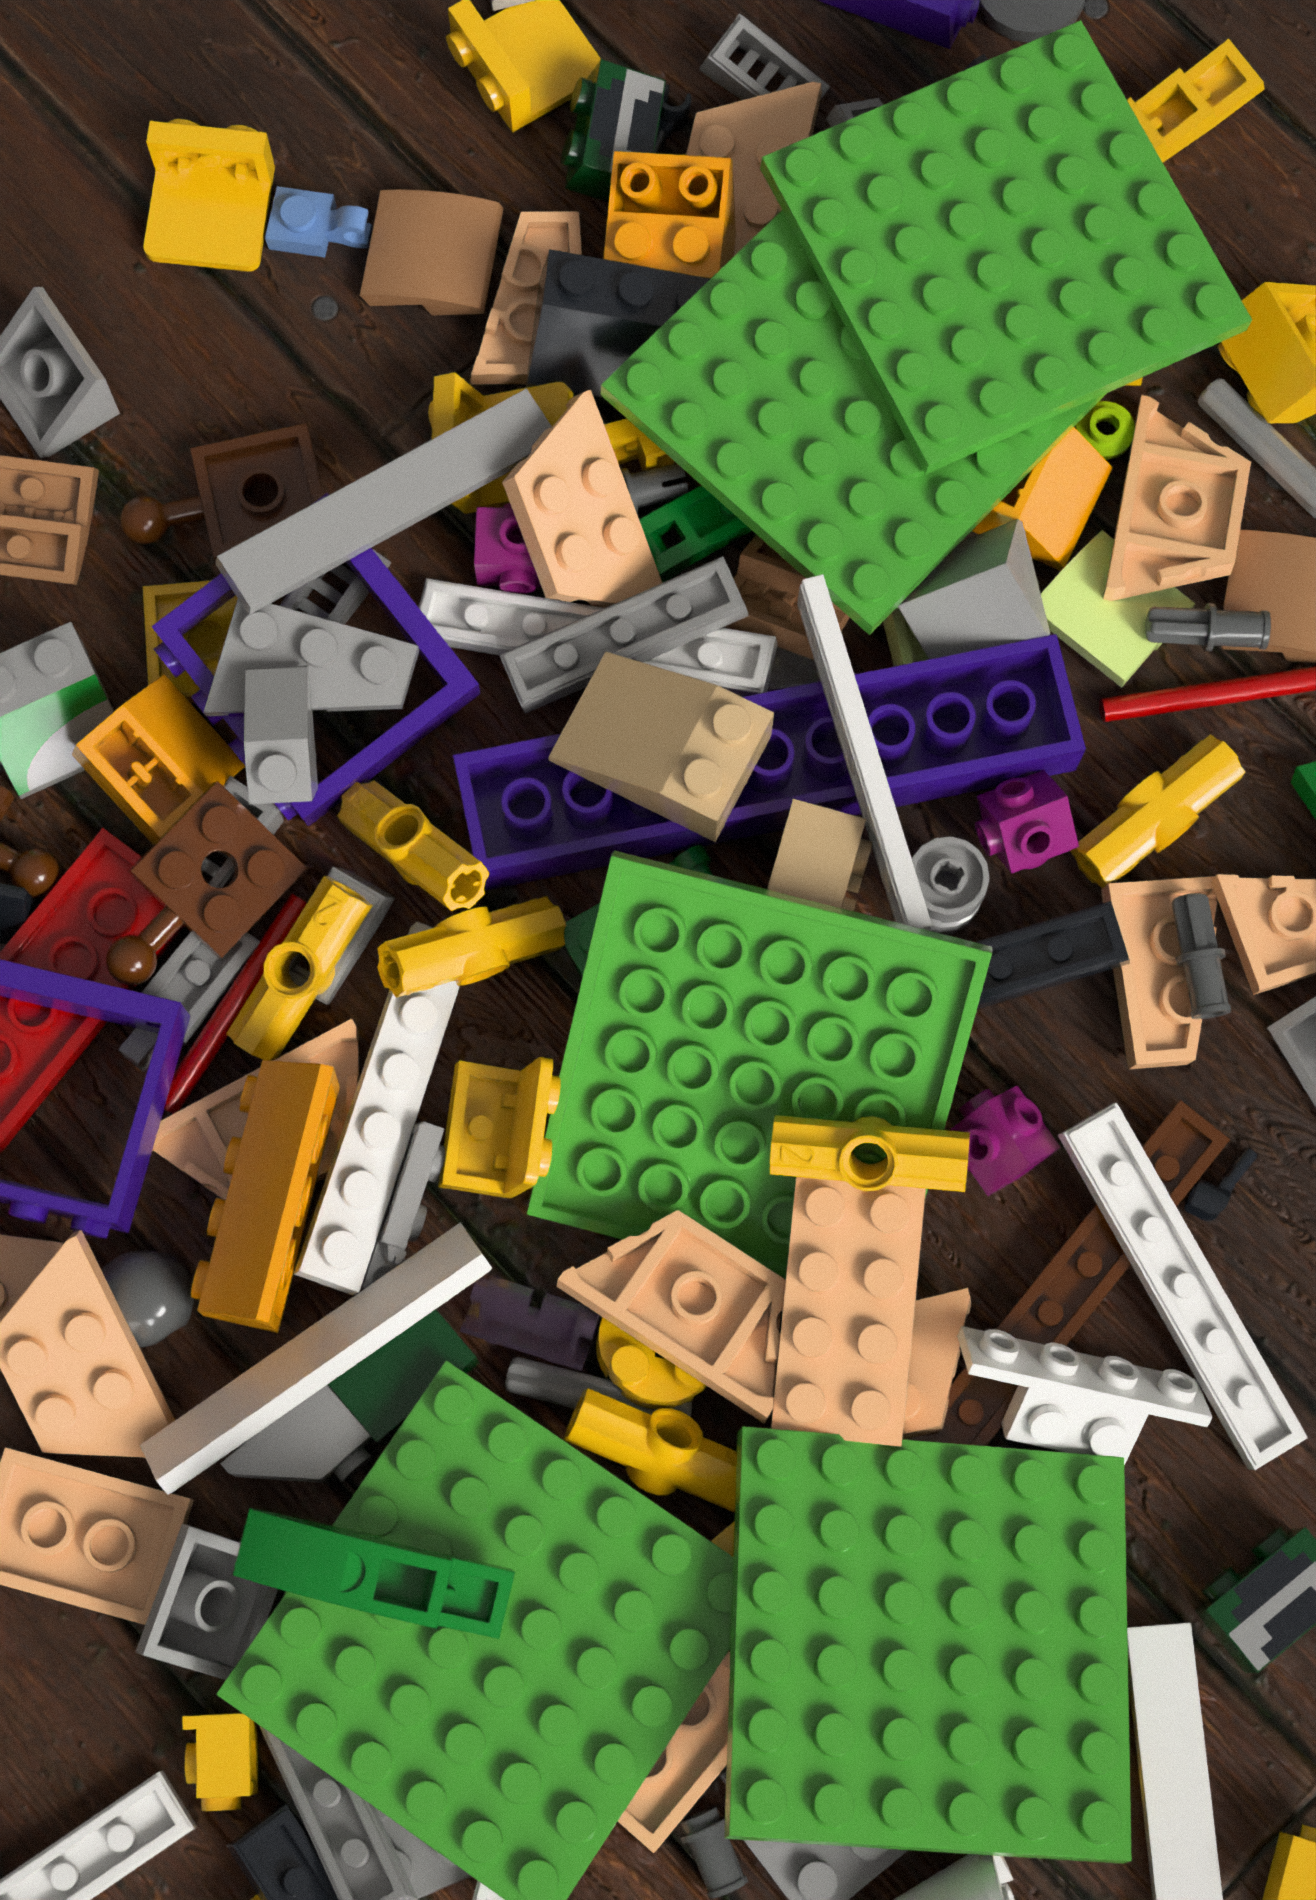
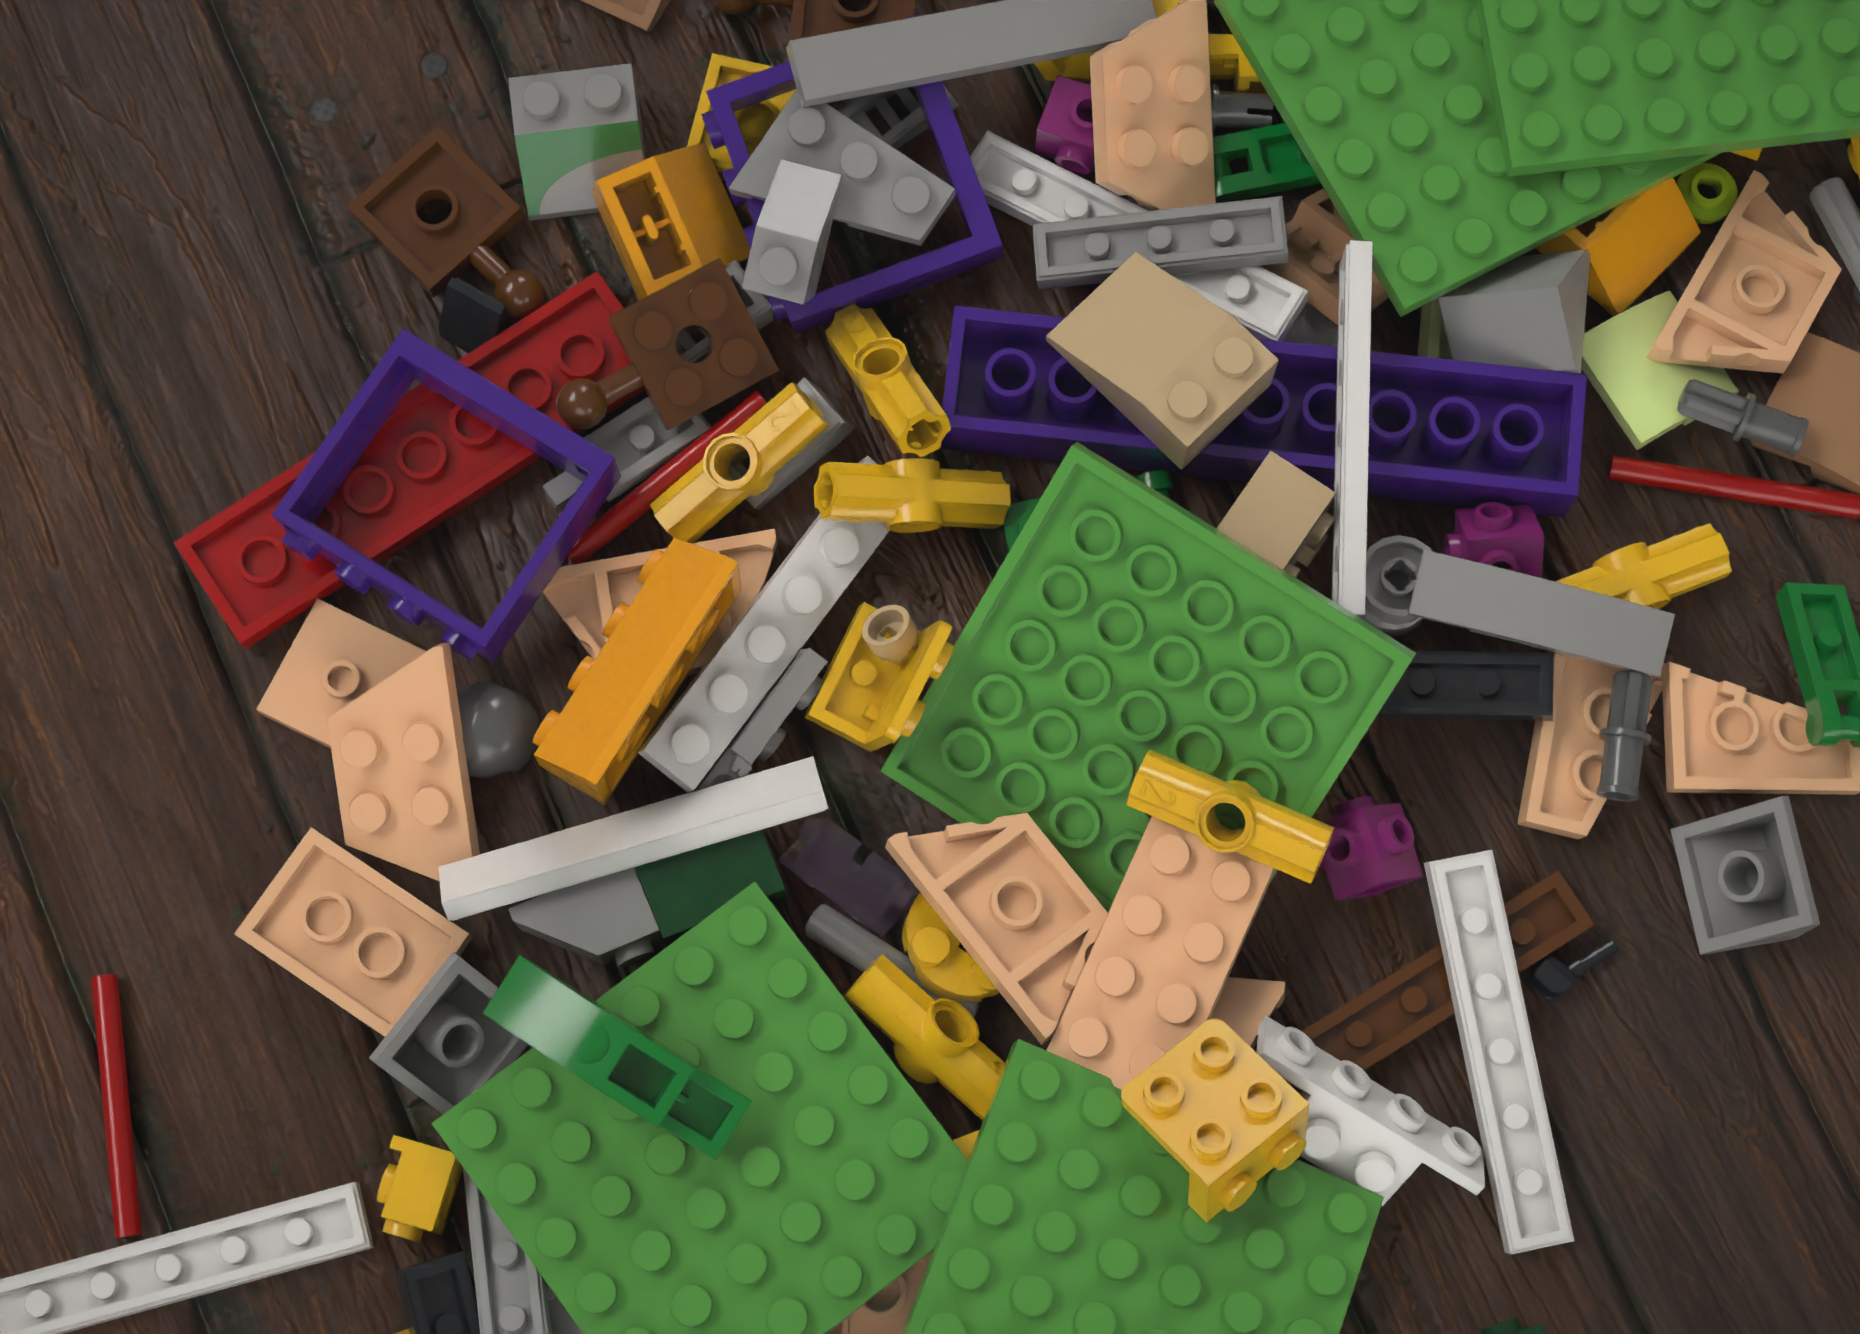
camera: 20 degrees right, 0 degrees up
(500, 1070) = (899, 623): none -> tan hinge
(951, 1436) = (1219, 1115): none -> yellow bracket
(1087, 869) = (1541, 613): none -> light grey slope

